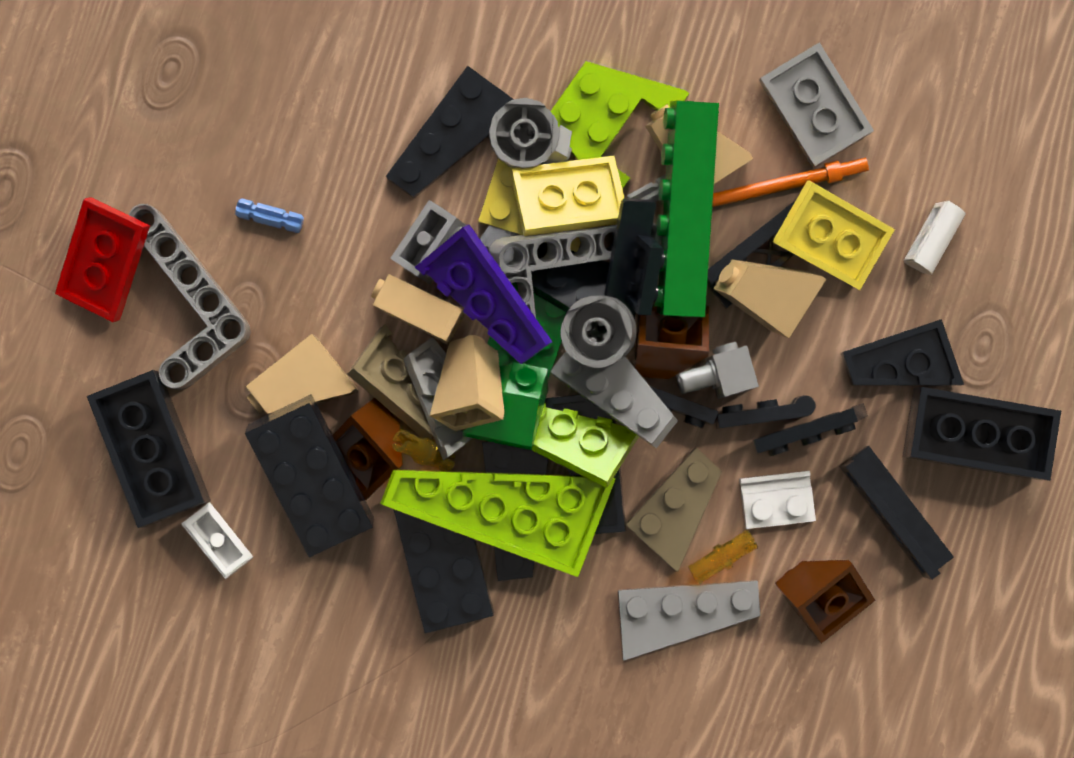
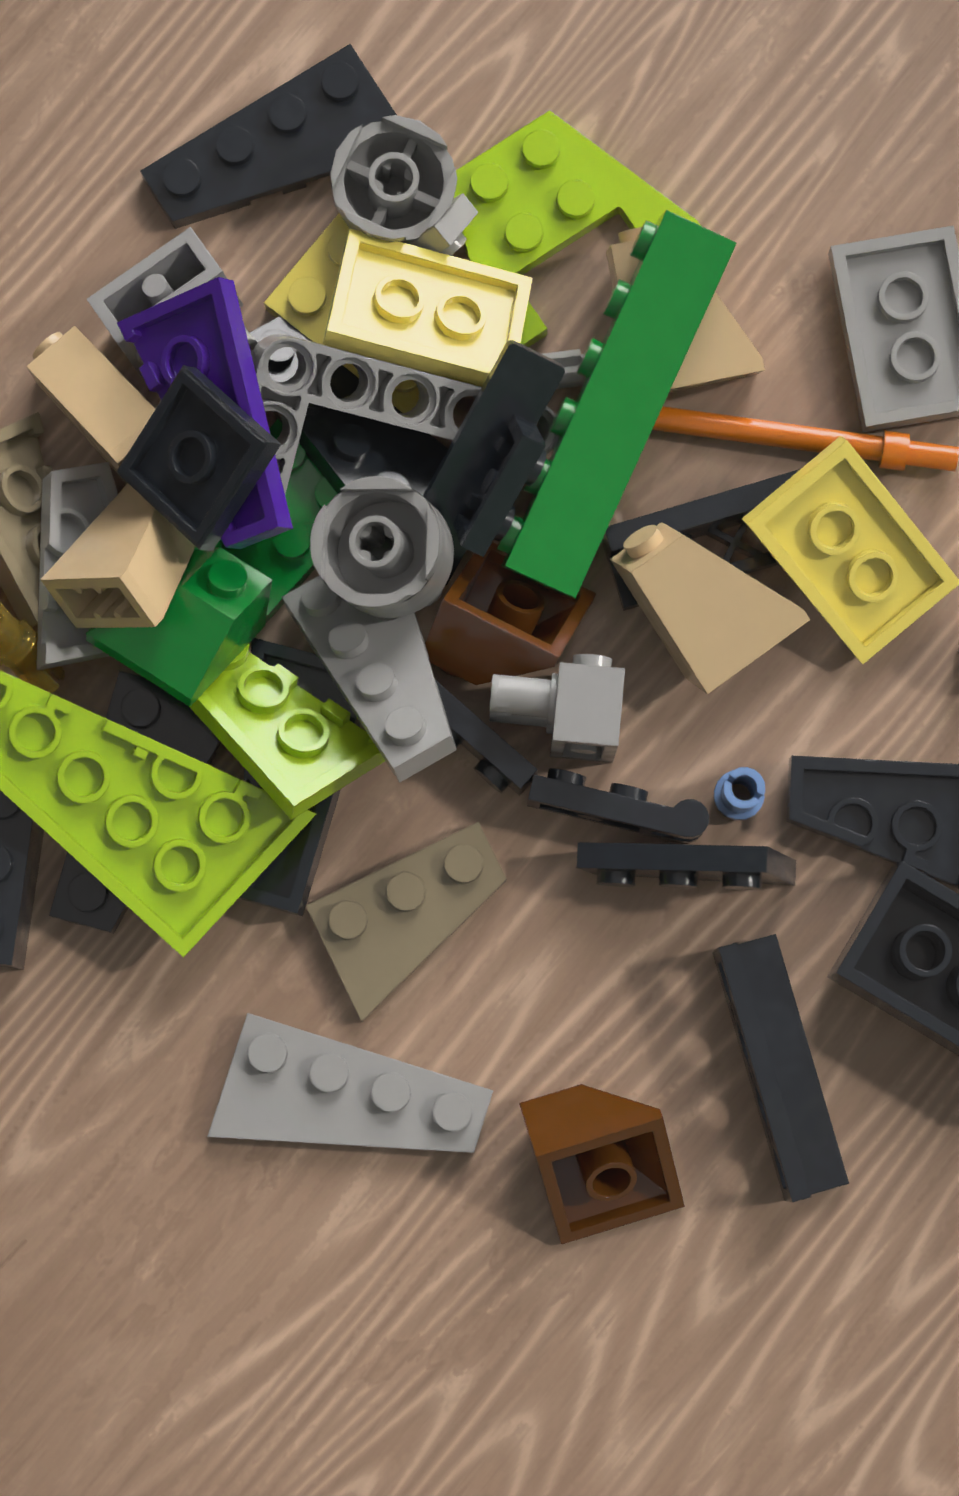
camera: 25 degrees right, 5 degrees down
(489, 324) = (198, 458): none -> black tile
(722, 556) = (449, 1025): clear yellow pin -> none
(777, 500) = (583, 966): white plate -> none
(815, 384) = (729, 804): none -> medium blue pin

